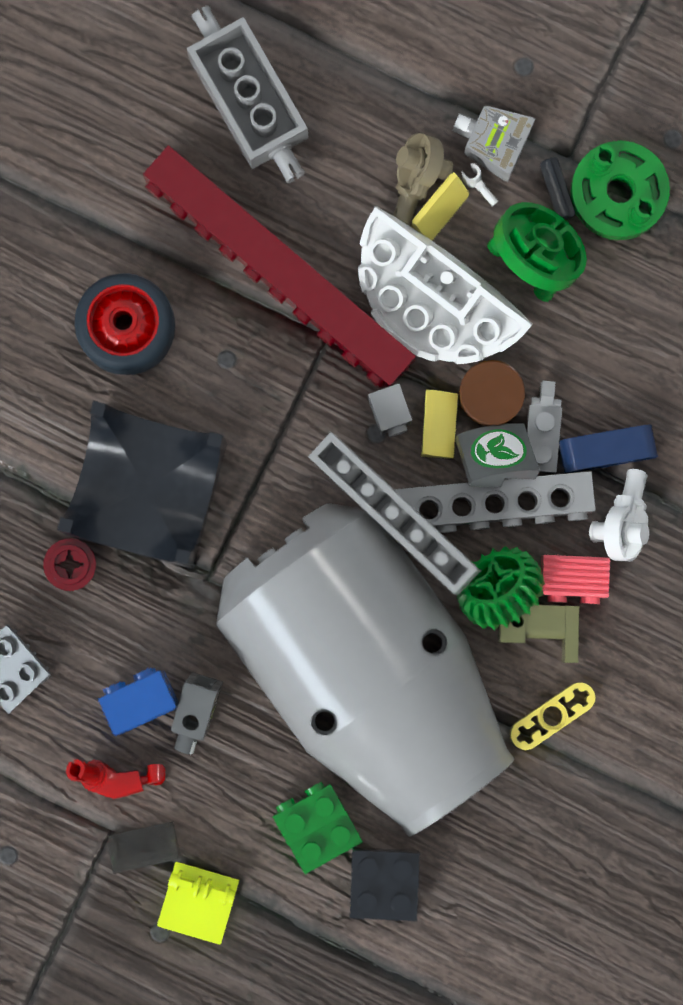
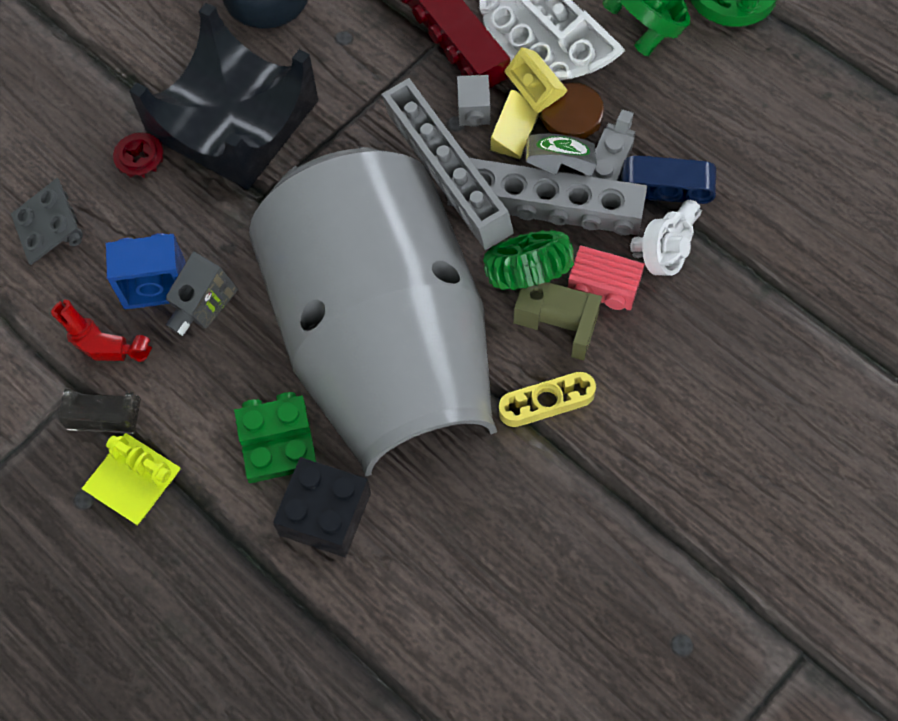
camera: 20 degrees right, 20 degrees down
(447, 371) = (534, 79): none -> light yellow slope

